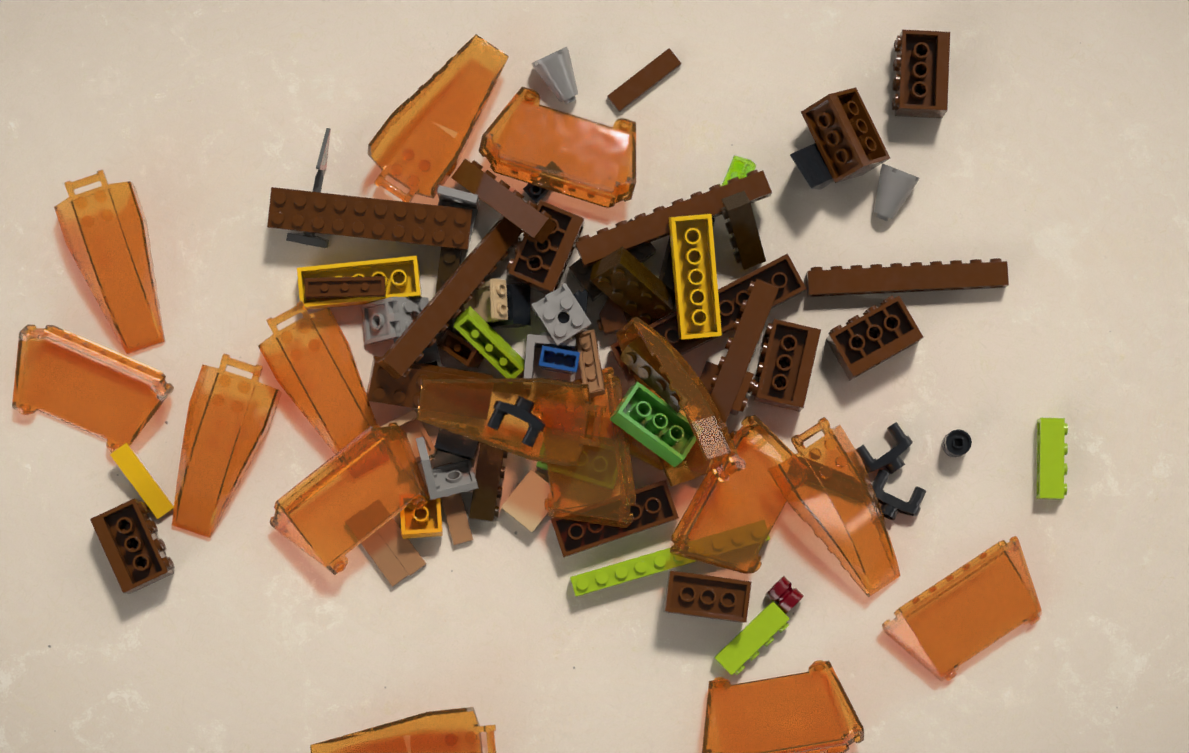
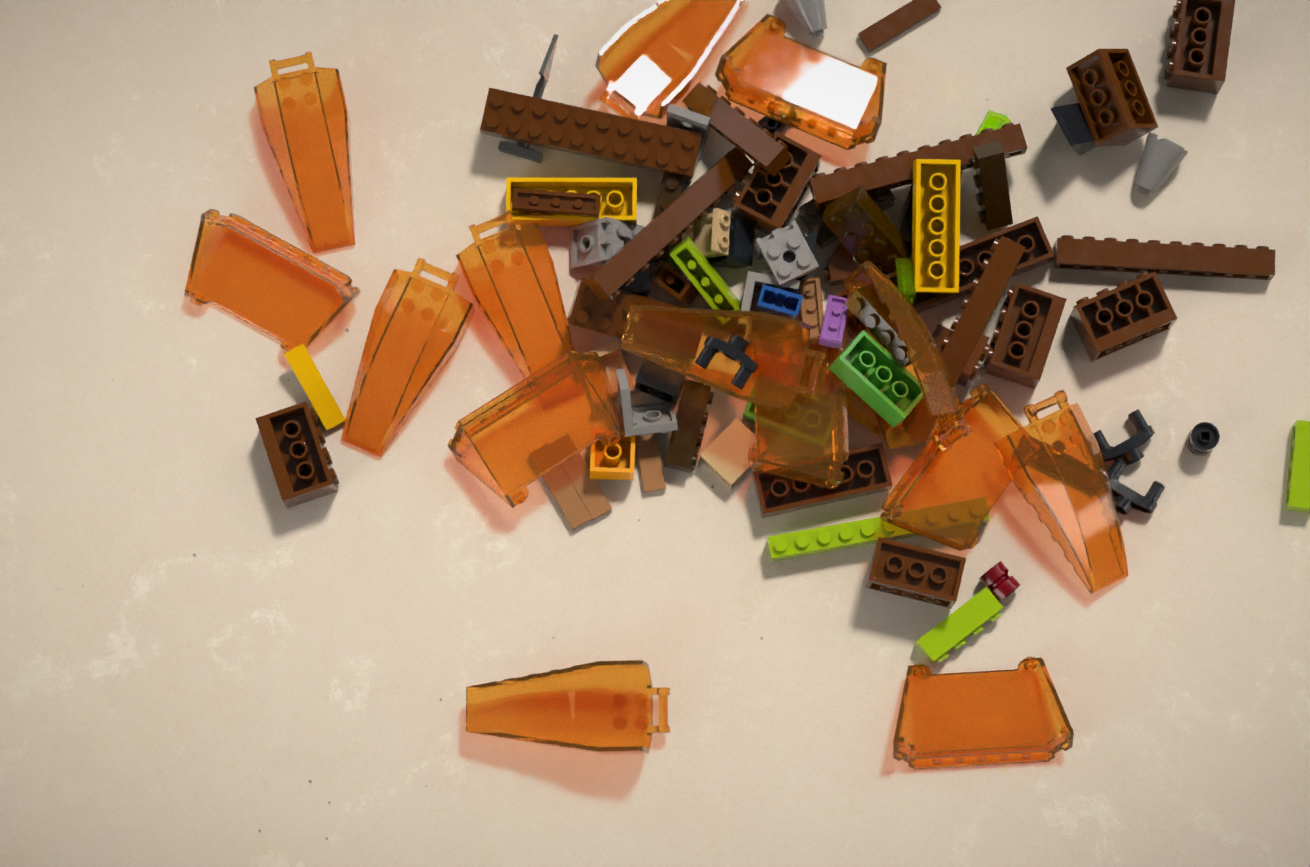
camera: 10 degrees right, 5 degrees down
(610, 374) = (834, 322): none -> medium lavender tile
(672, 328) = (906, 278): none -> clear neon green slope
(967, 610) = (1197, 619): clear orange windscreen -> none

